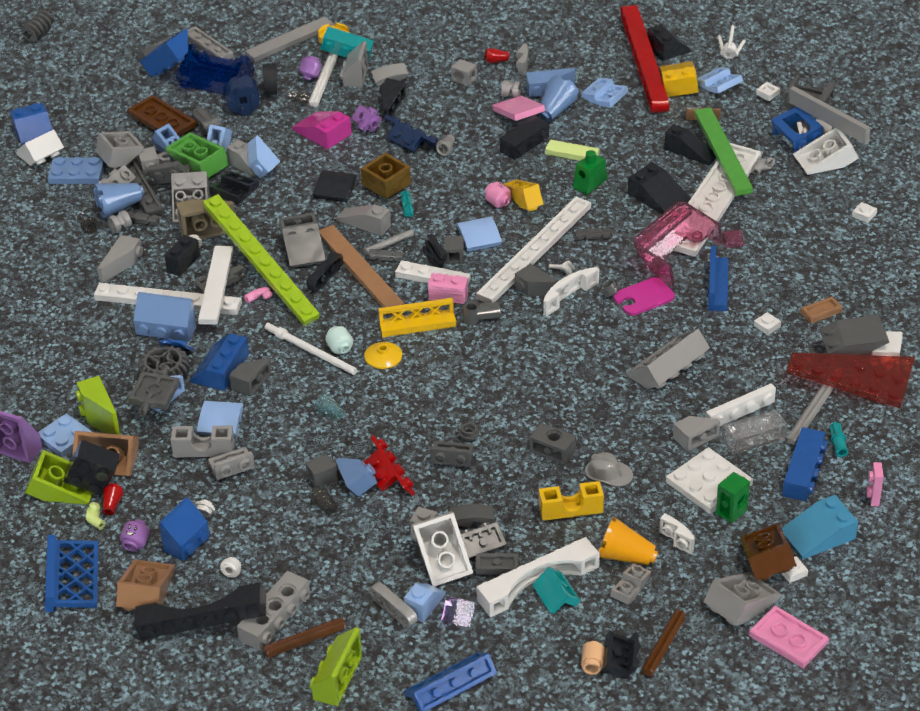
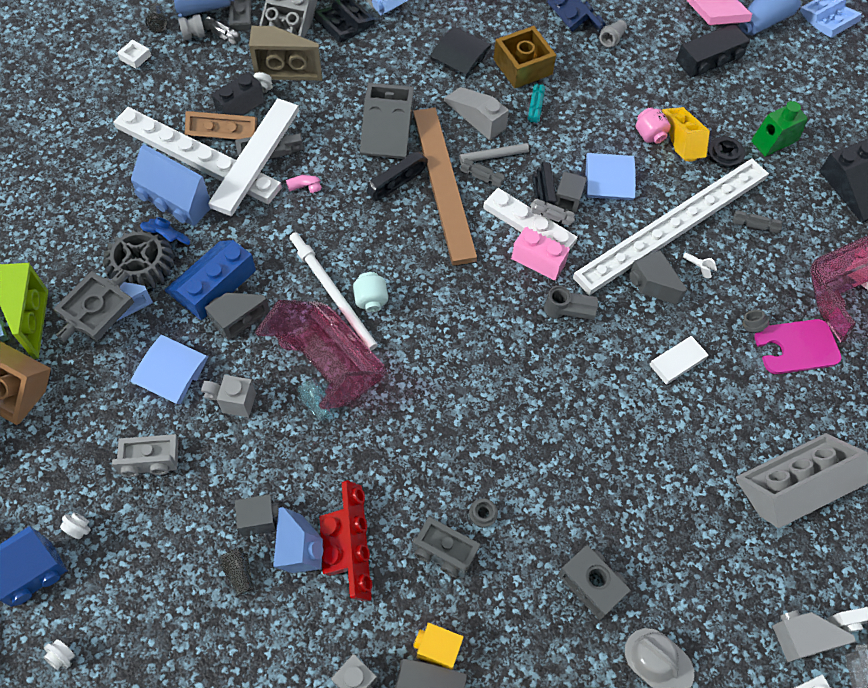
camera: 15 degrees right, 20 degrees up
(83, 249) = (134, 54): none -> white plate
(120, 257) = (167, 78): light grey slope -> none
(177, 275) = (219, 125): none -> medium nougat plate
(188, 444) = (108, 404): light grey arch -> none
(261, 260) = (322, 139): lime plate -> none
(274, 417) = (233, 396): none -> light grey brick
(321, 376) = (328, 346): none -> clear pink windscreen
(383, 355) = (417, 339): yellow dish -> none
(417, 321) = (484, 290): yellow fence -> none
(446, 263) = (552, 212): none -> light grey axle
(468, 494) = (438, 646): none -> yellow brick
(557, 193) = (726, 144): none -> black gear
(566, 323) = (678, 360): none -> white tile
(568, 150) = (764, 86): yellowish green tile -> none
(581, 279) = (722, 294): white slope -> none

